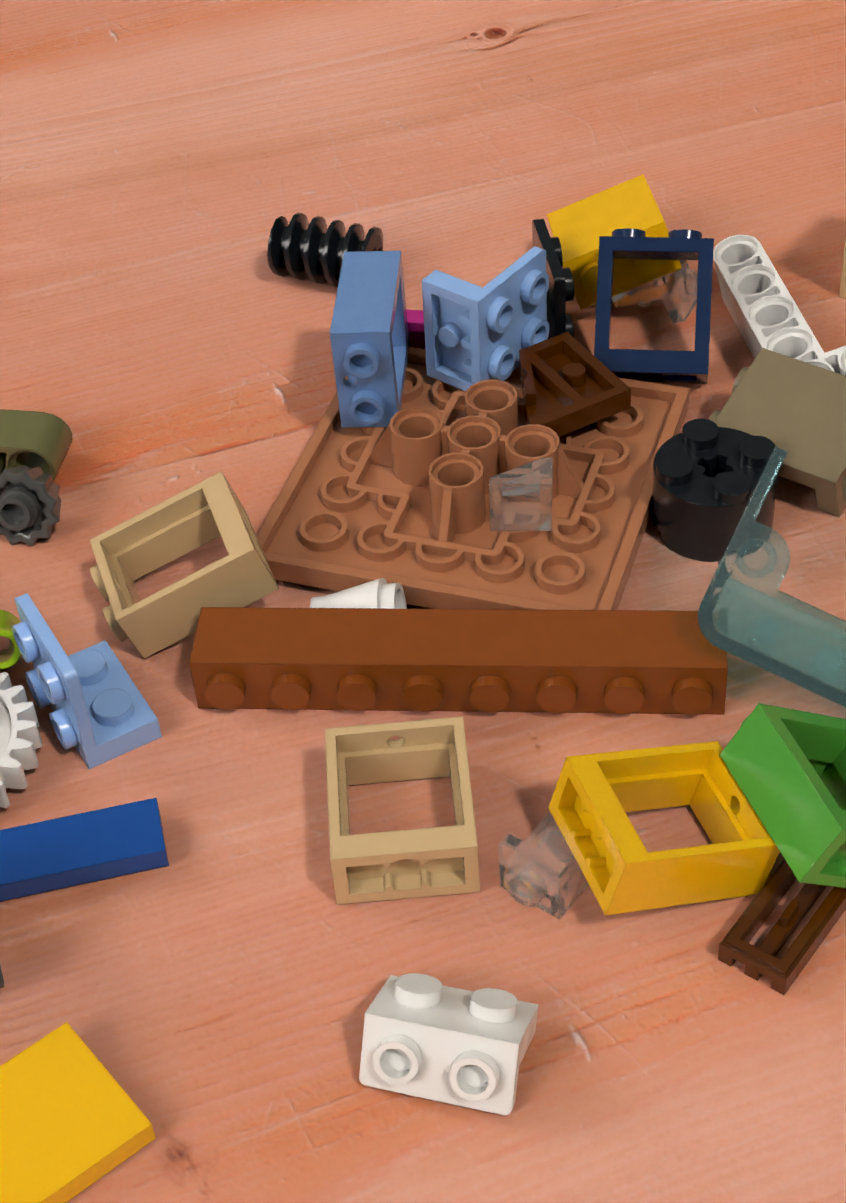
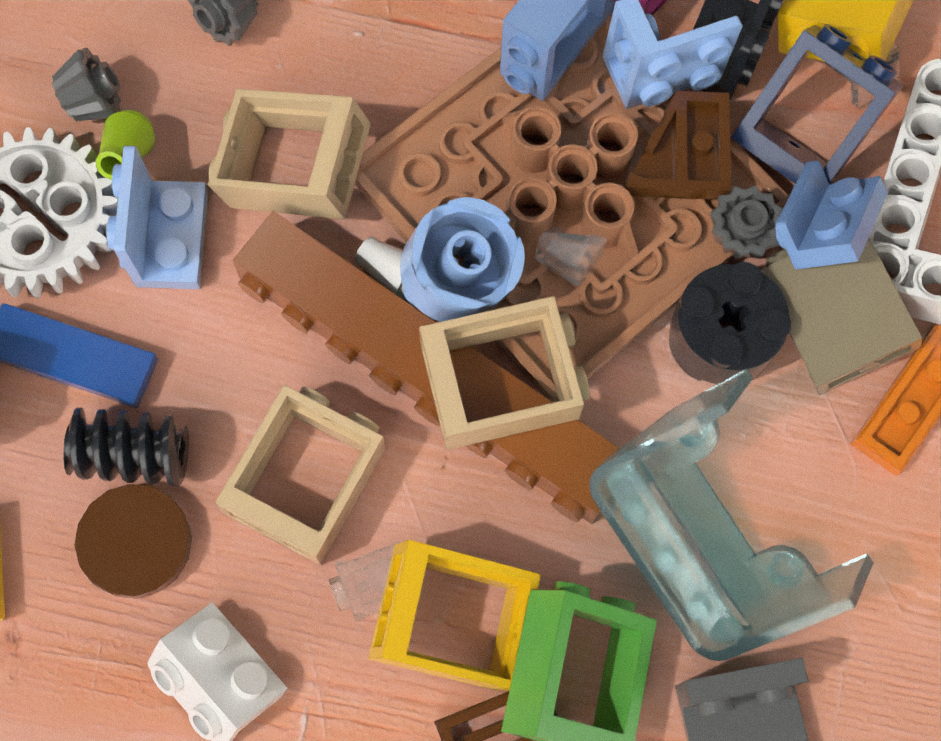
camera: 25 degrees right, 30 degrees up
(185, 880) = (125, 448): none -> black piece
(256, 975) = (133, 541): none -> reddish brown tile
(429, 538) = (490, 260): none -> light blue brick
(512, 641) = (493, 325): none -> tan window
(663, 404) = (746, 222): none -> dark grey piece
(739, 361) = (828, 221): none -> medium blue bracket

